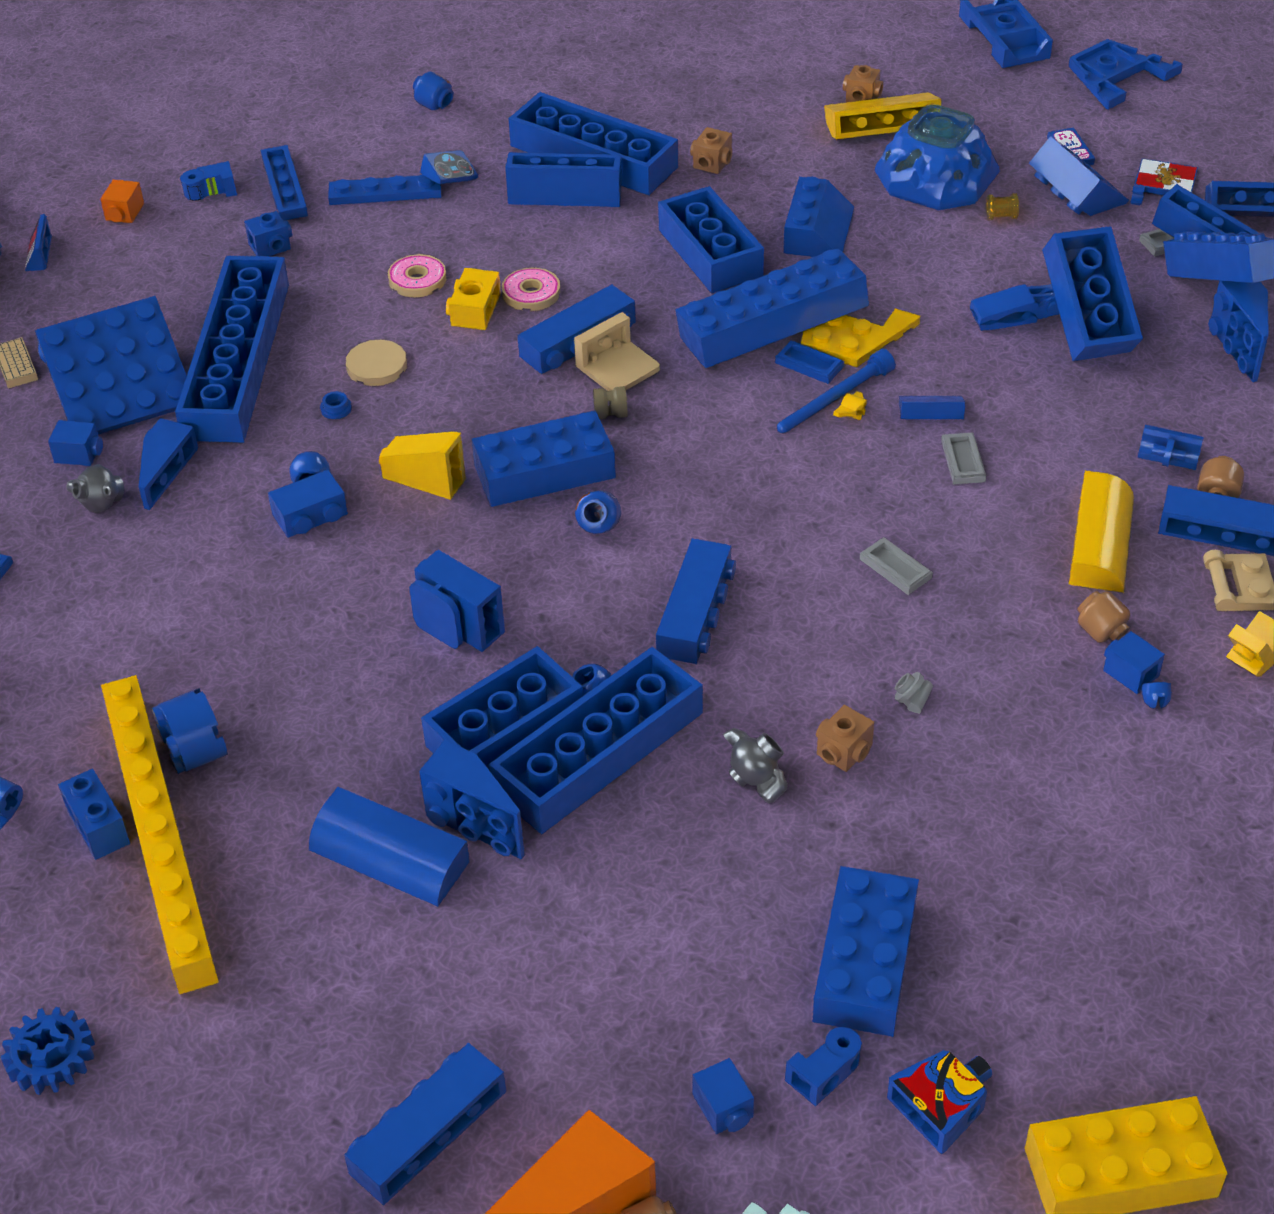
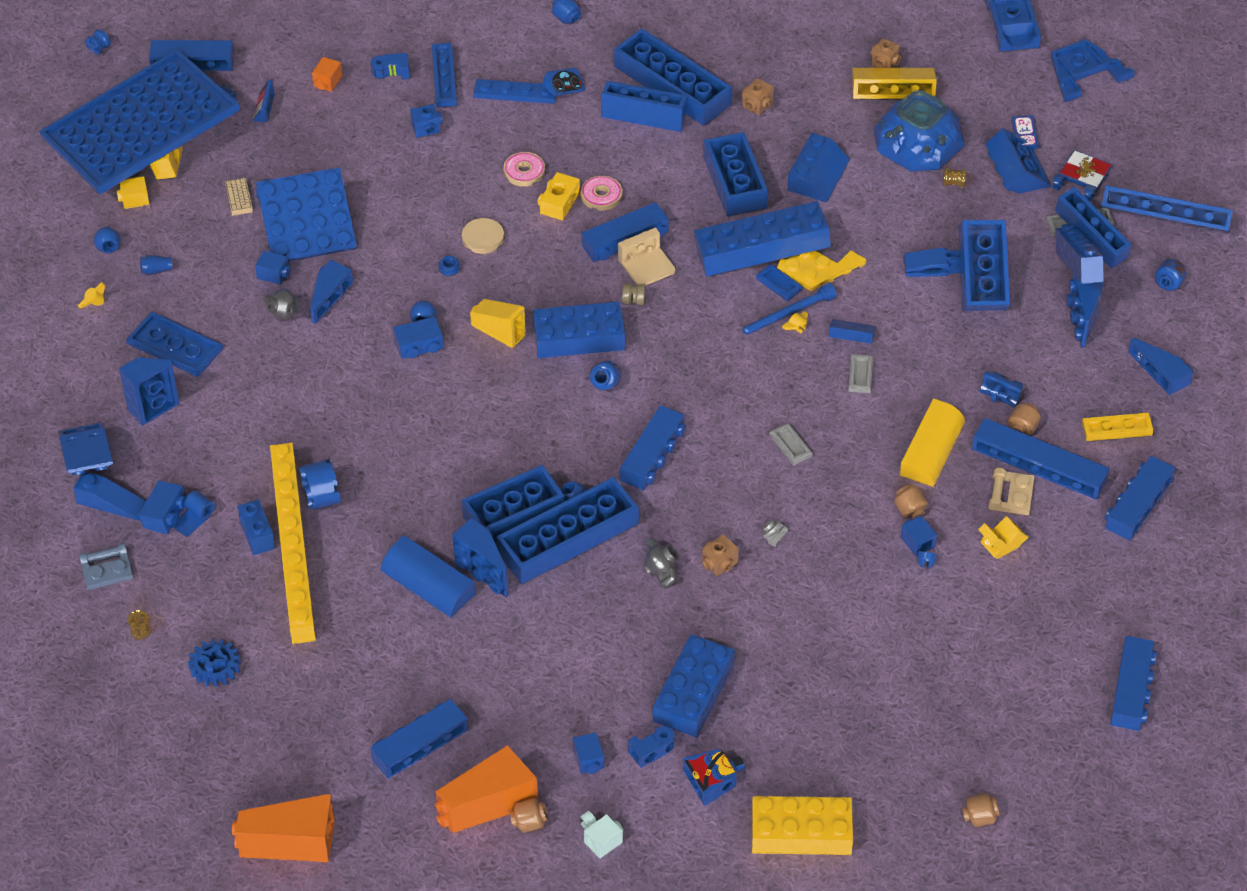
camera: 10 degrees right, 5 degrees up
(233, 348) = (388, 210): blue brick -> none
(456, 603) = (498, 426): blue brick -> none

